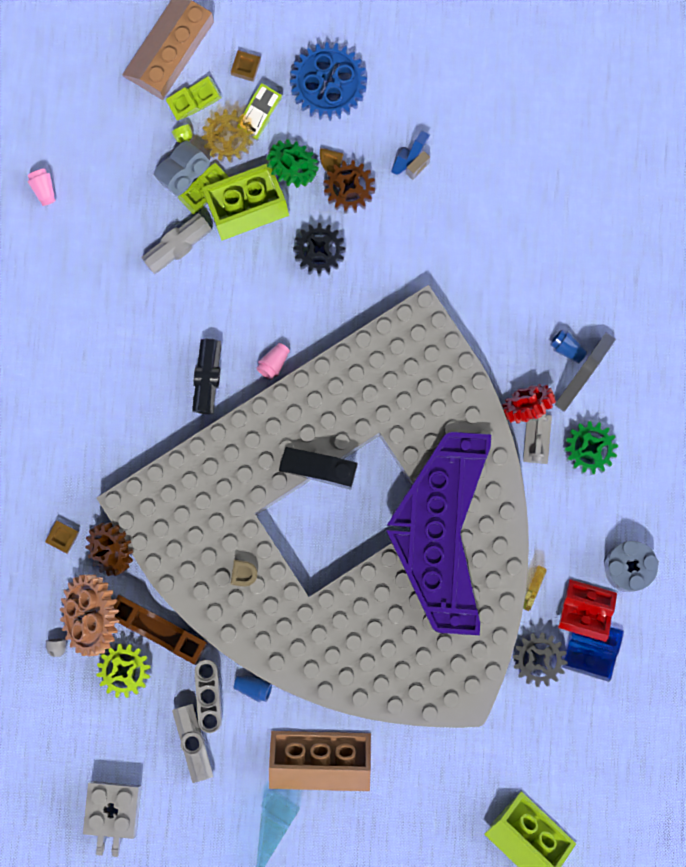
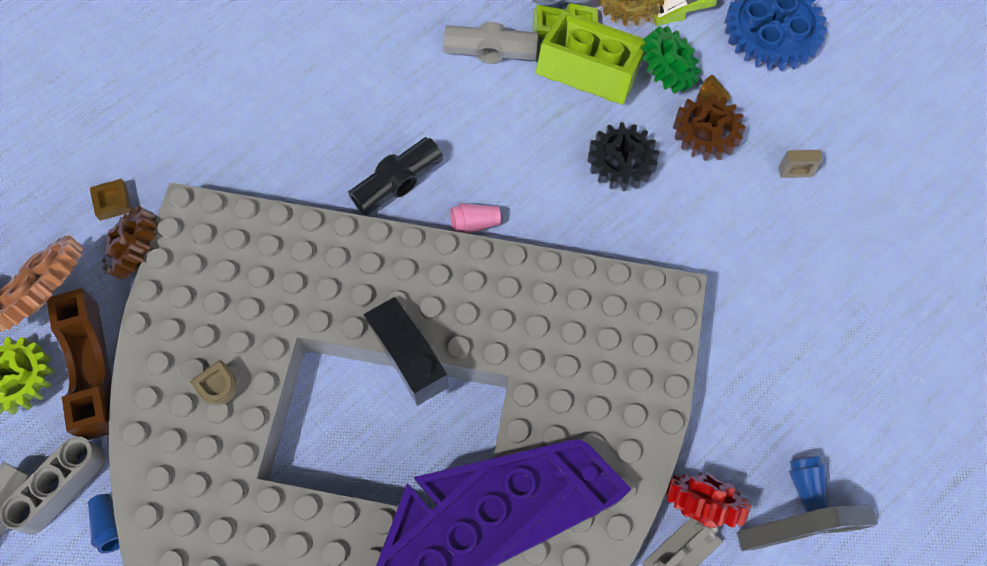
camera: 45 degrees right, 15 degrees down
(406, 157) = (819, 140): blue slope -> none

